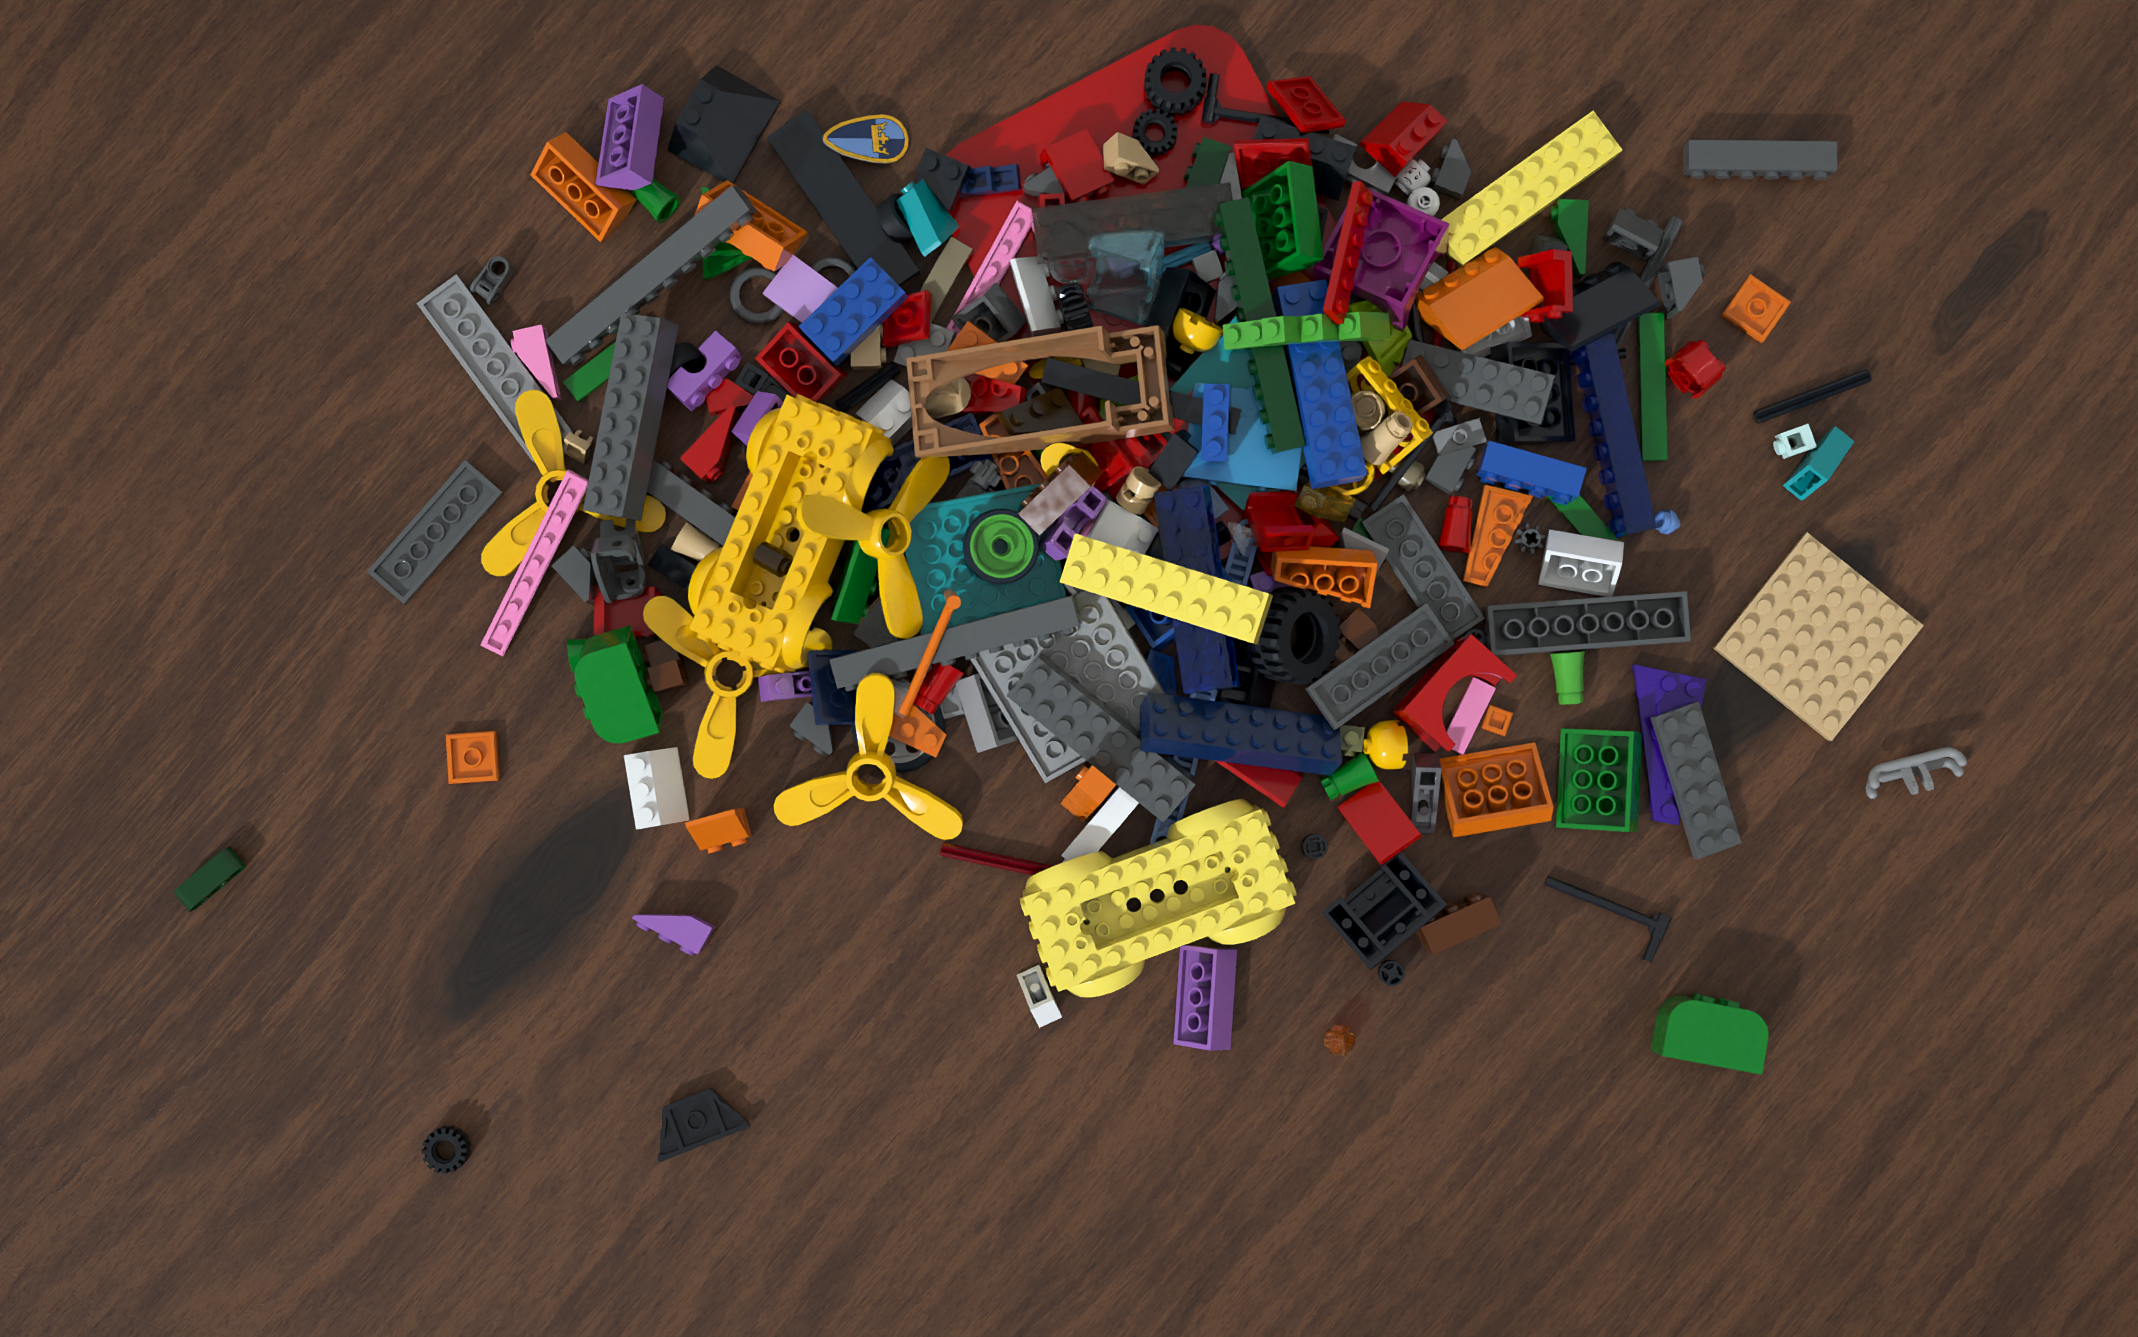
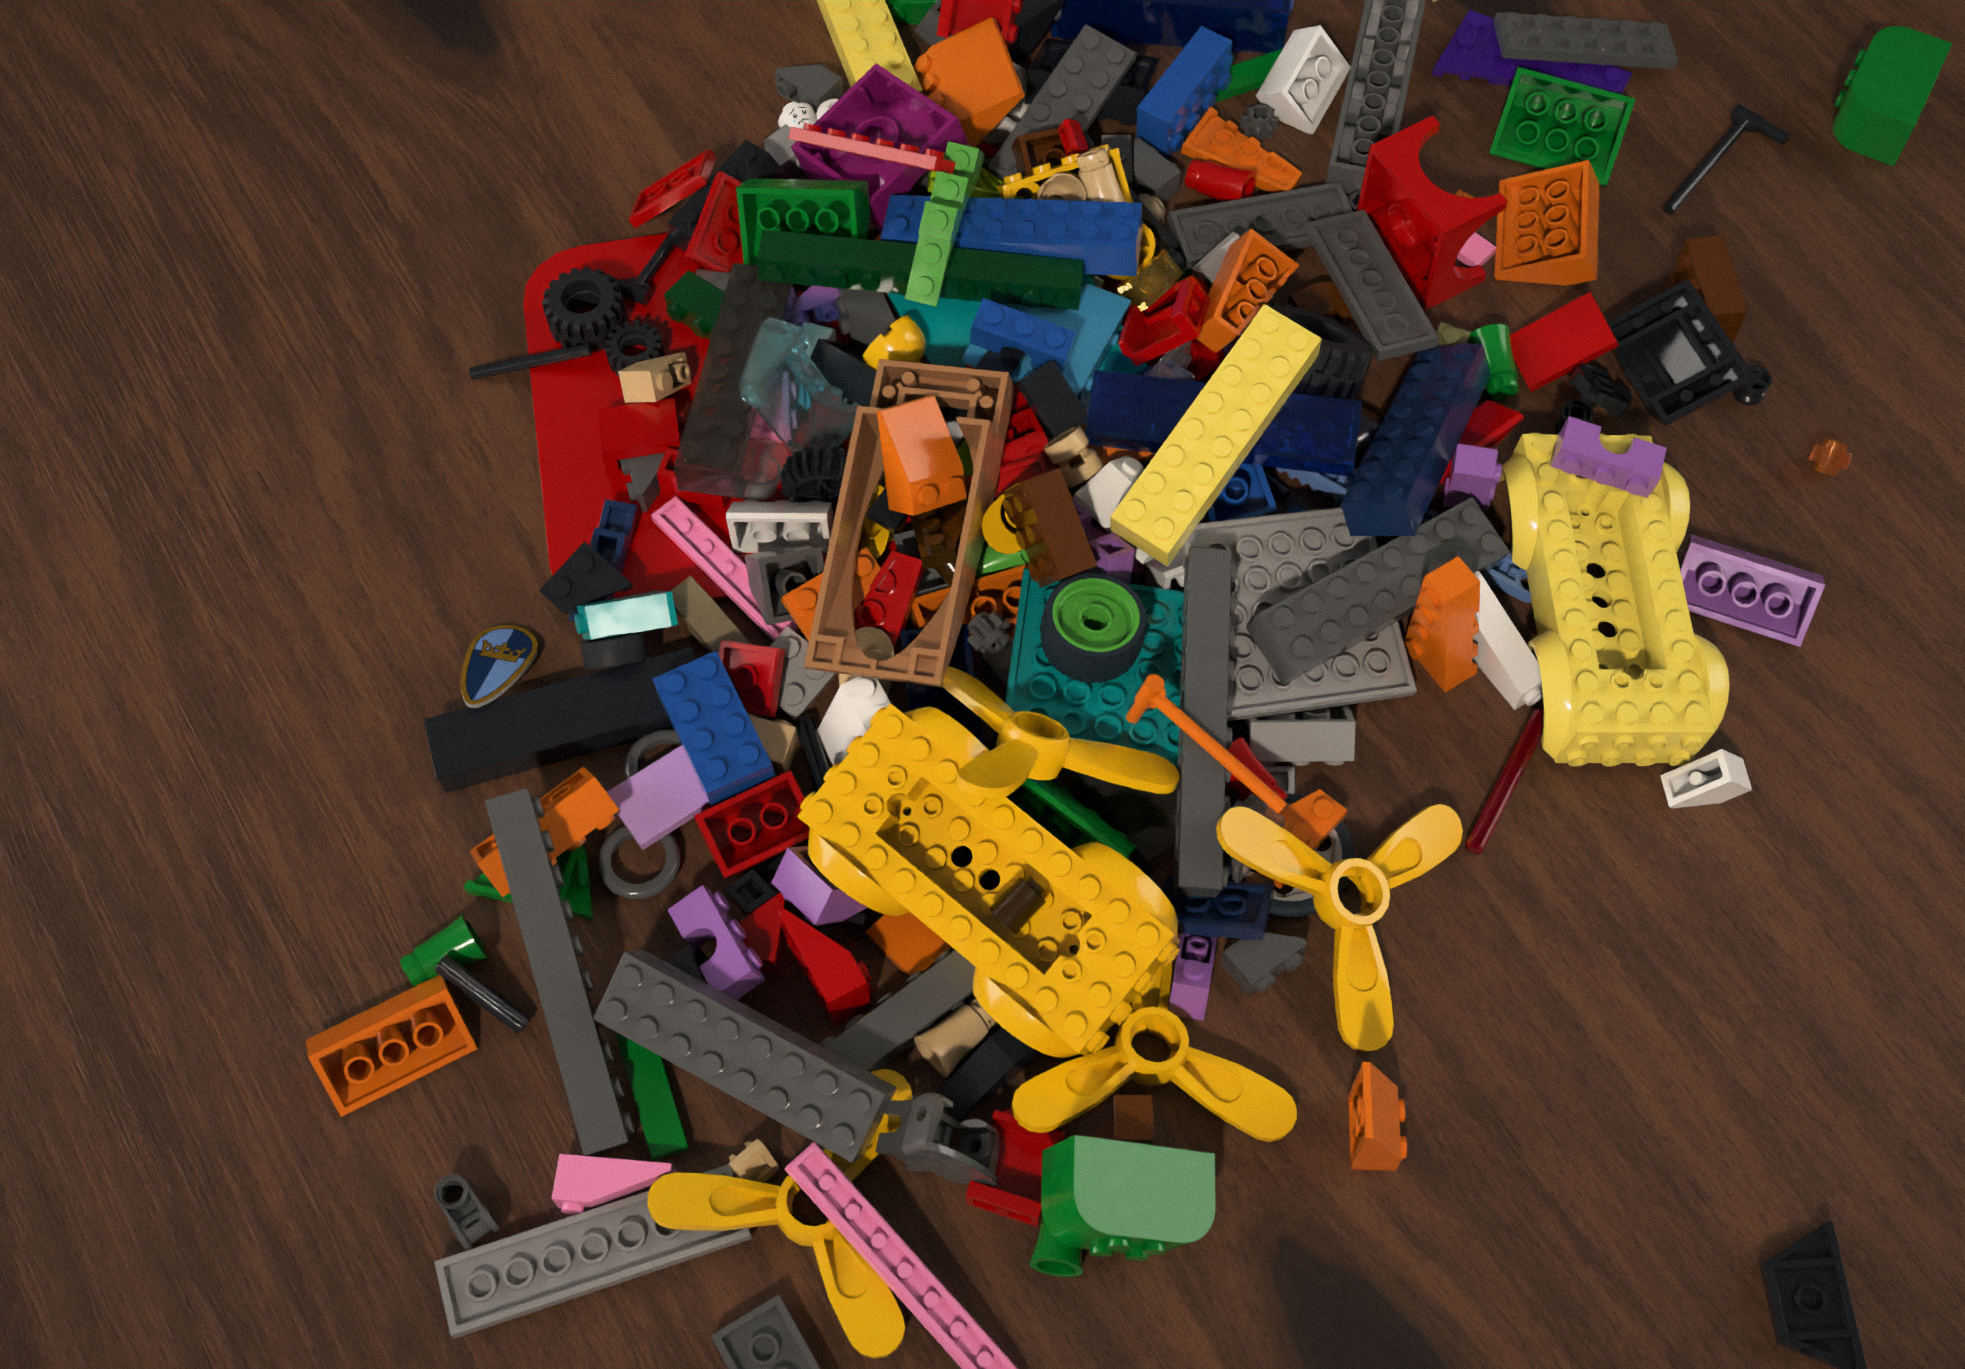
camera: 70 degrees left, 25 degrees down
(578, 572) = (942, 1208): dark grey slope -> none
(630, 139) = (357, 951): medium lavender slope -> none
(630, 231) = (482, 994): none -> black axle
(656, 787) = (1289, 1207): white slope -> none
(683, 929) = (1510, 1227): medium lavender slope -> none
(721, 124) = (395, 841): black slope -> none
(1085, 383) = (919, 457): none -> orange slope
(1124, 58) = (530, 361): none -> black bar
(1216, 781) = (1471, 475): none -> medium lavender arch
(1248, 852) = (1581, 453): none -> medium lavender arch
(1334, 855) = (1599, 390): none -> black plate
(1386, 744) = (1468, 302): yellow cylinder -> none
(1403, 135) = (751, 110): red slope -> none
(1425, 791) = (1525, 288): flat silver slope -> none
(1426, 402) = (1072, 137): none -> red slope
(1569, 676) = (1451, 127): bright green plant -> none

